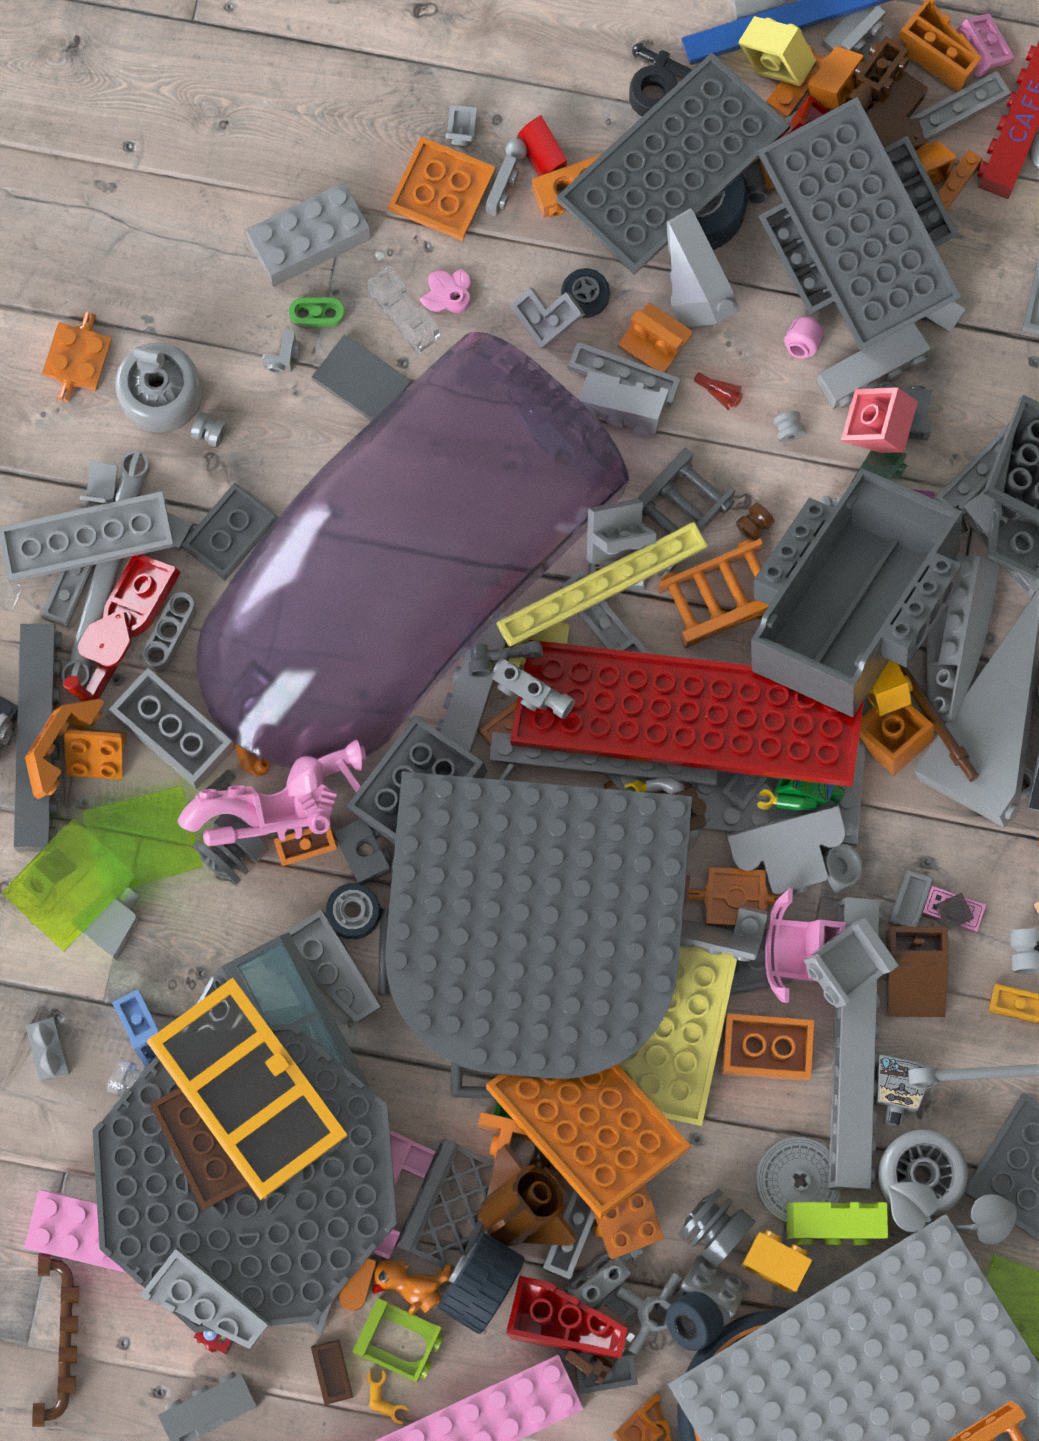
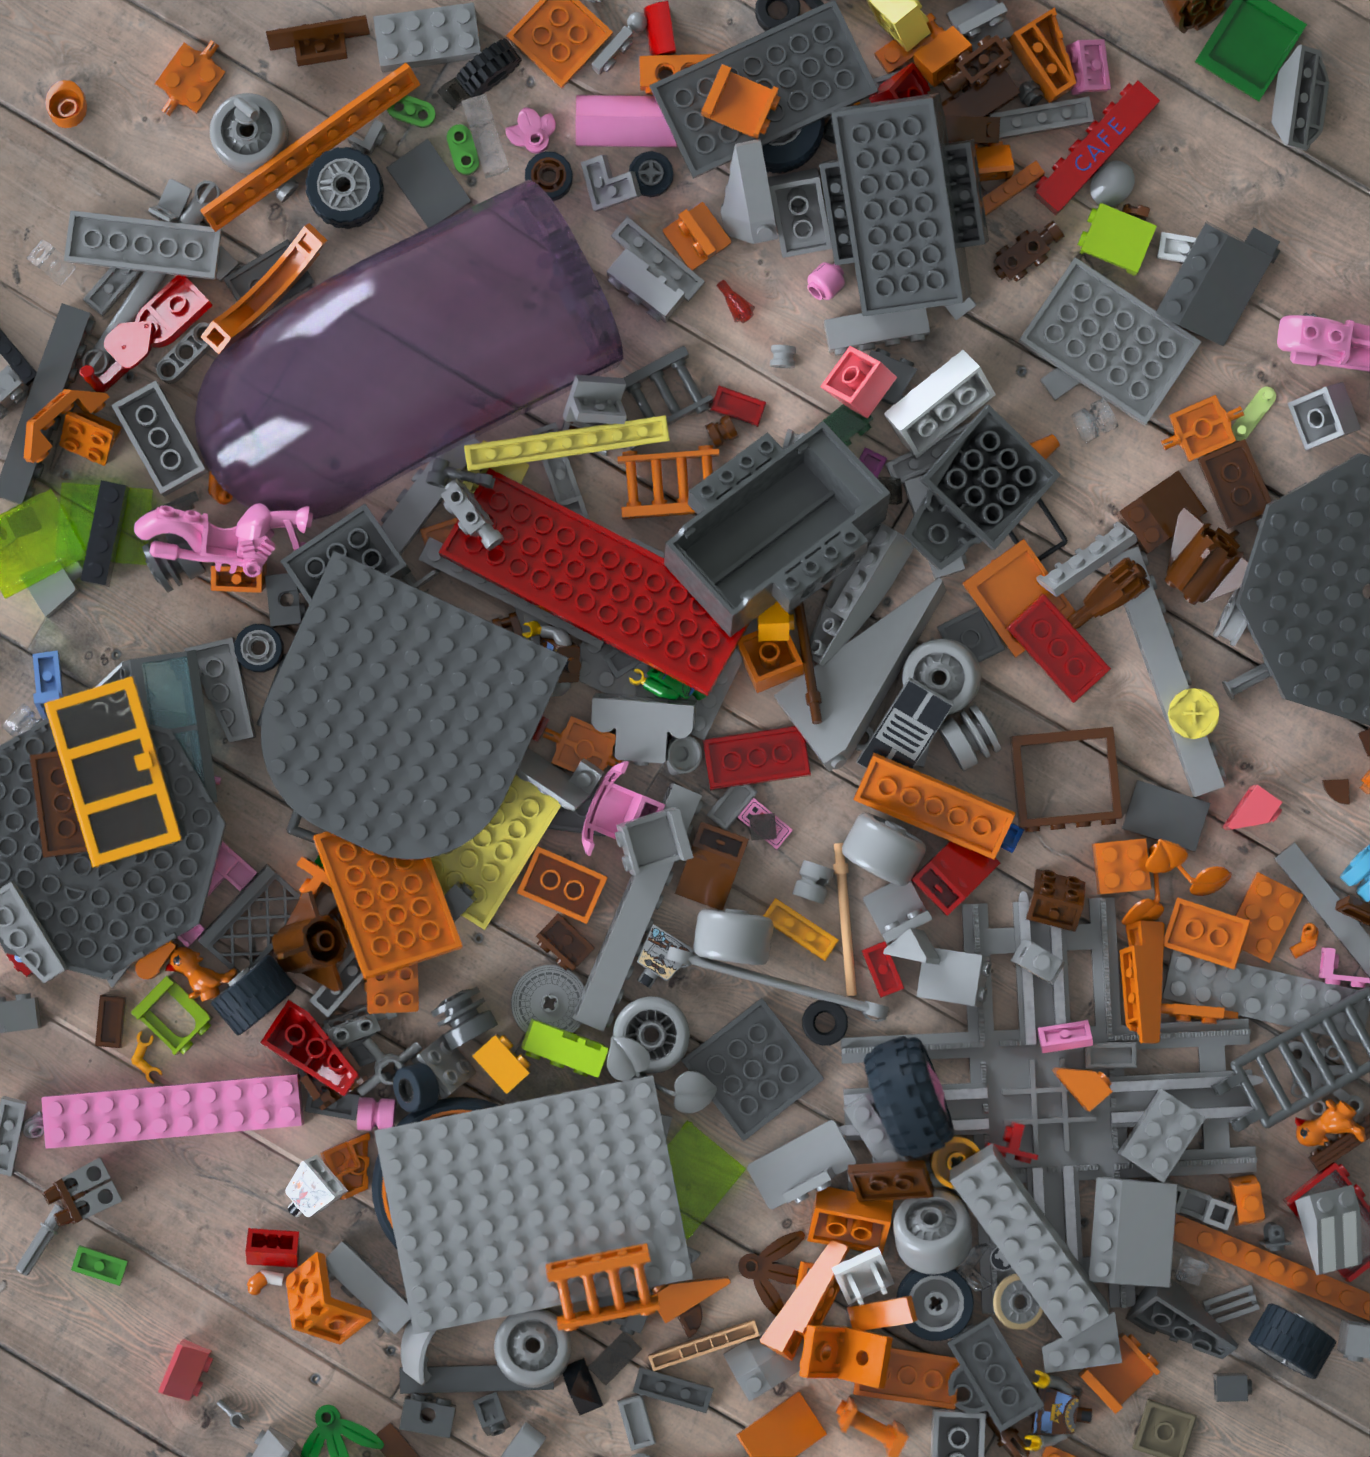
camera: 20 degrees right, 10 degrees up
(147, 846) = (105, 533): none -> black brick
(197, 274) = (319, 41): none -> reddish brown bracket
(226, 379) = (310, 146): none -> orange plate
(235, 536) = (266, 292): none -> orange arch
(277, 409) = (337, 169): none -> wheel
(354, 280) = (453, 93): none -> clear smoke plate
(382, 333) = (463, 149): none -> bright green plate
(383, 239) = (489, 68): none -> black tyre
(482, 315) = (550, 162): none -> wheel
(539, 252) = (621, 122): none -> bright pink slope
(657, 182) = (740, 103): none -> orange panel
(658, 1368) = (375, 1113): none -> bright pink wheel
(665, 1099) = (459, 899): none -> dark grey brick
(754, 279) = (799, 212): none -> light grey slope
(765, 491) = (738, 406): none -> red tile
(792, 1108) = (564, 942): none -> reddish brown bracket
(918, 843) = (756, 758): none -> red tile
(937, 88) = (1030, 93): none -> dark grey plate
(969, 415) = (939, 403): none -> white brick
(971, 1035) = (733, 936): none -> light grey wheel
(993, 243) = (1023, 255): none -> reddish brown brick

